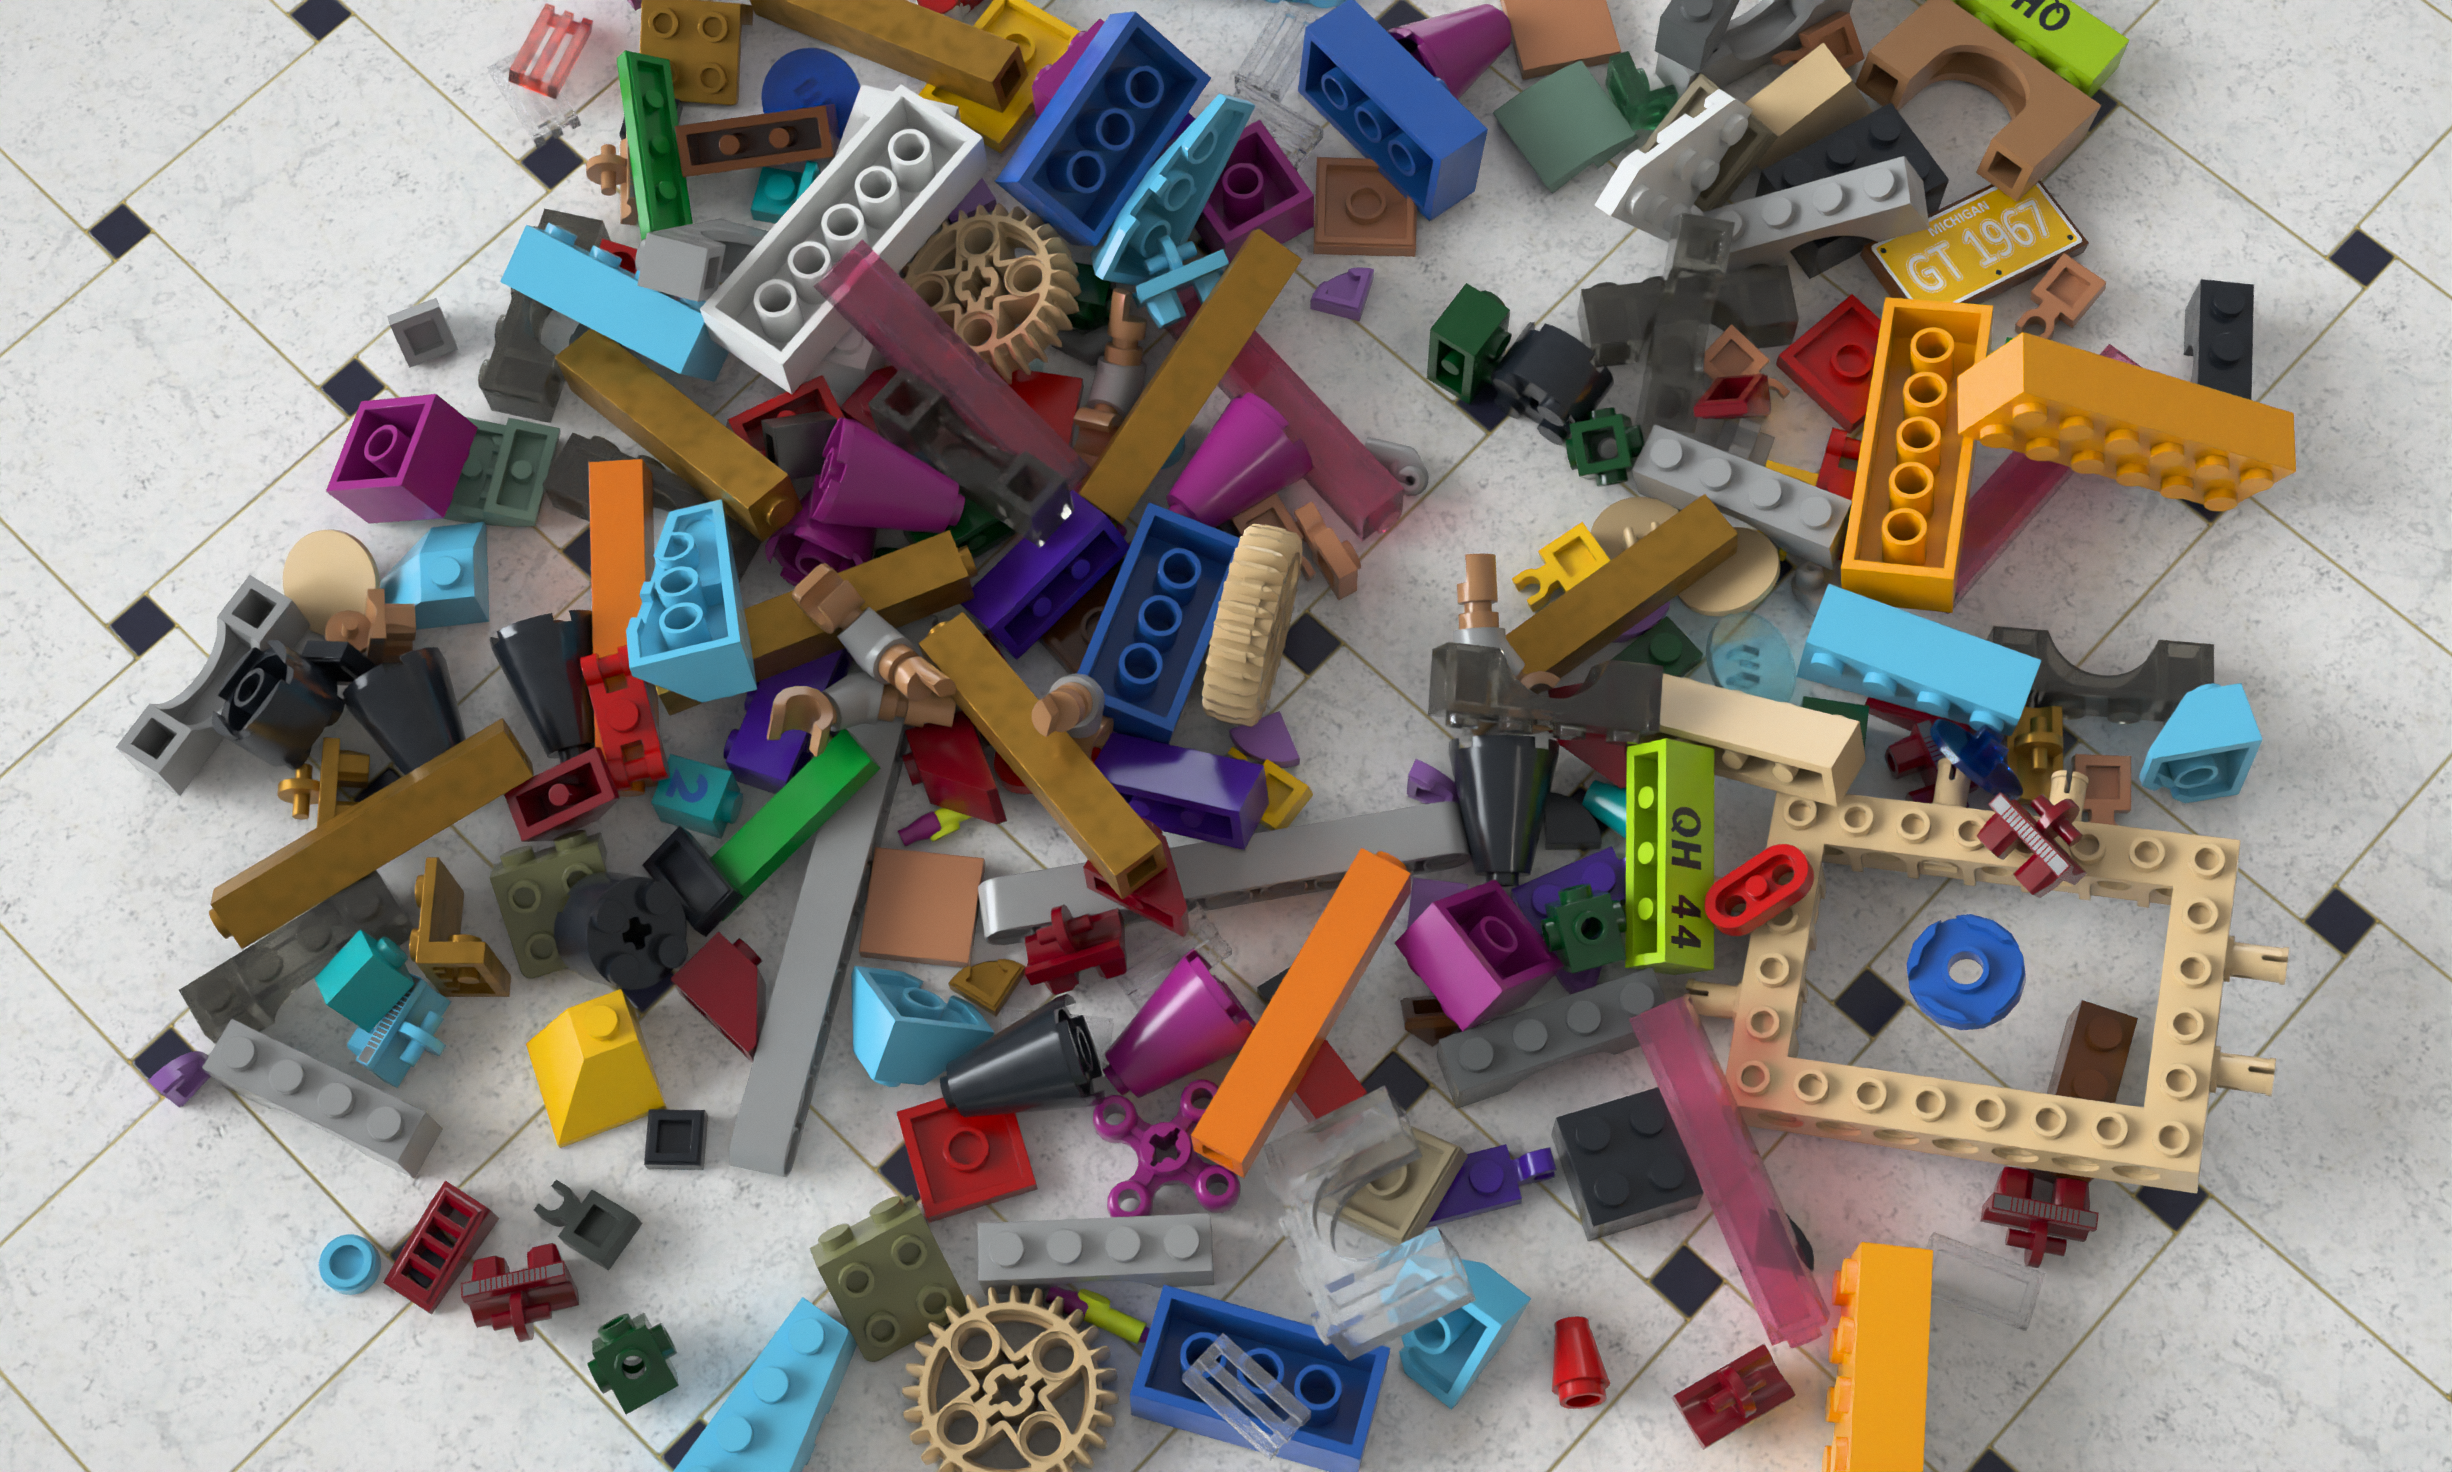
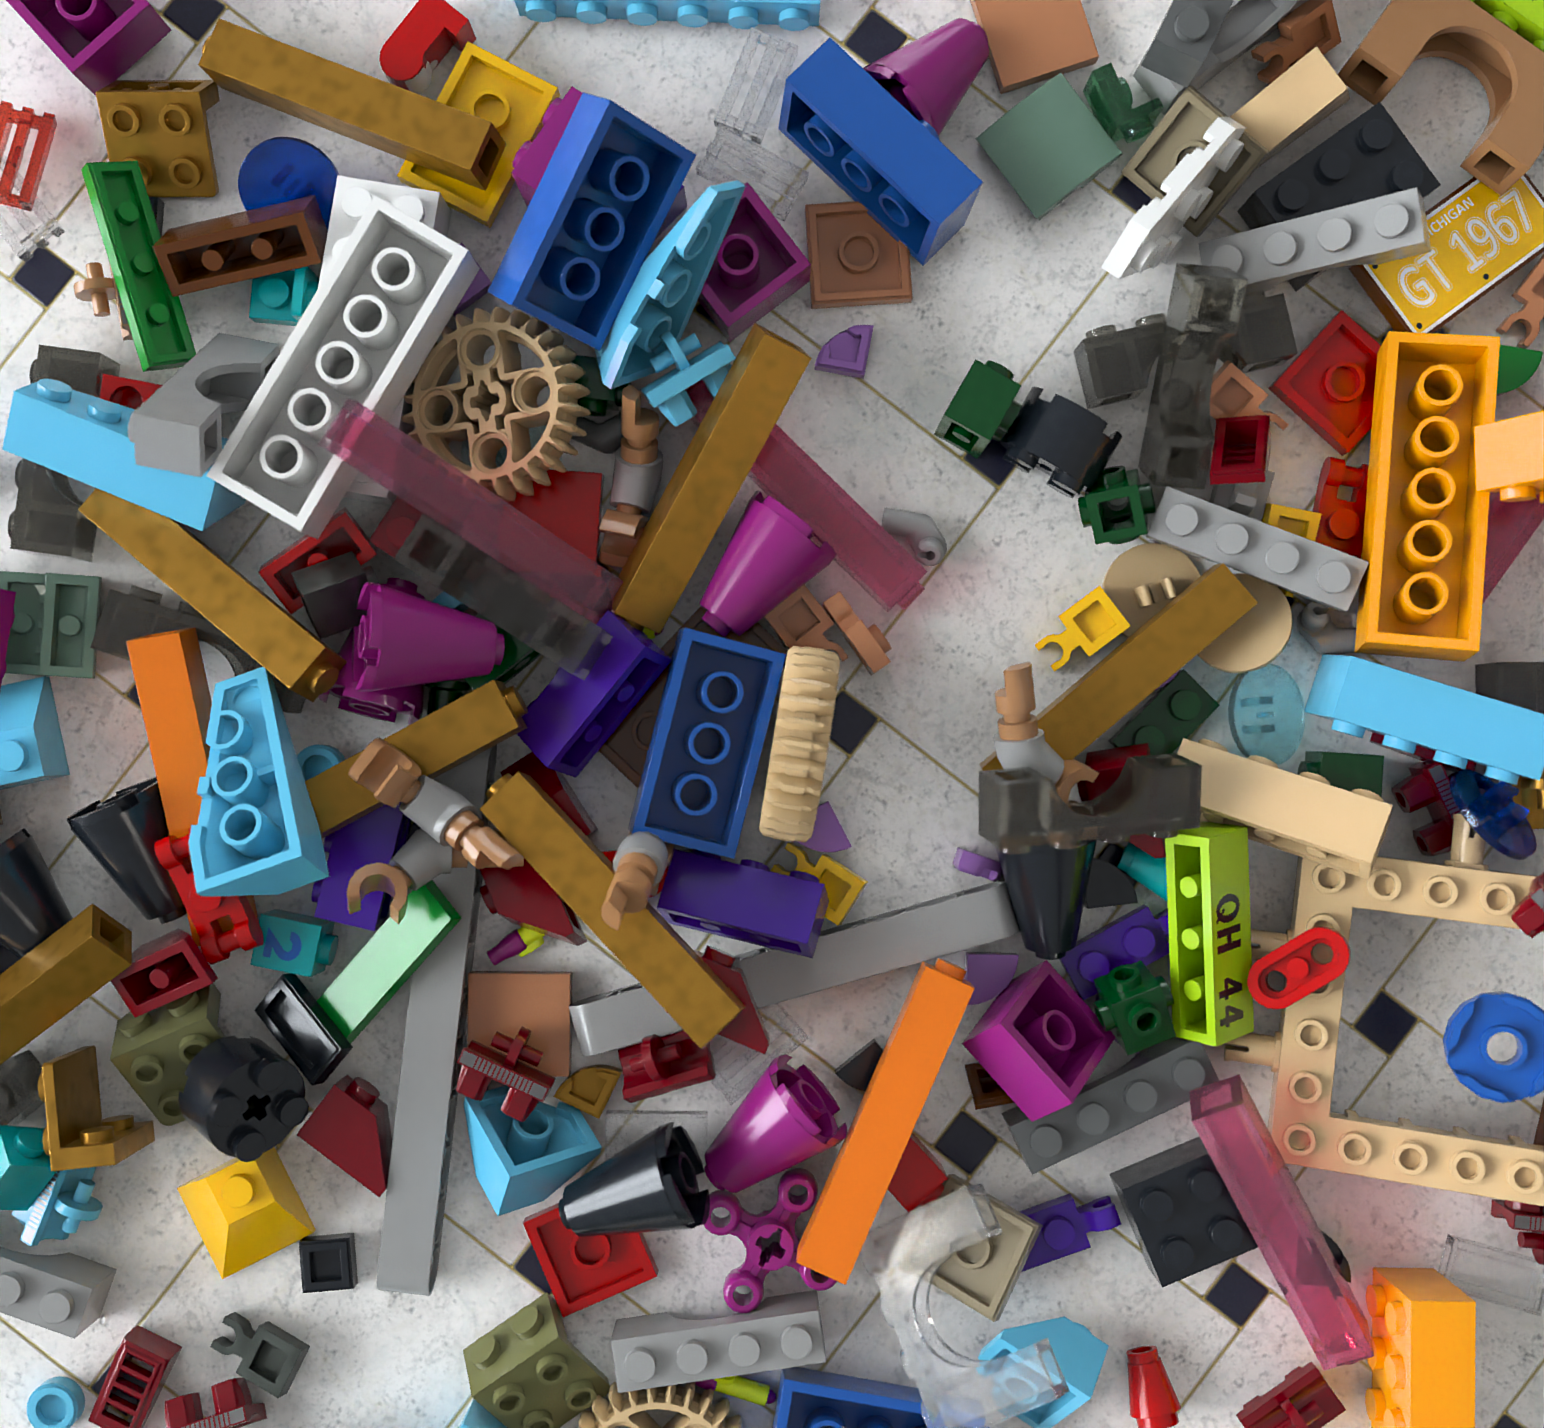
camera: 10 degrees left, 20 degrees up
(921, 952) = (525, 1082): none -> dark red hips

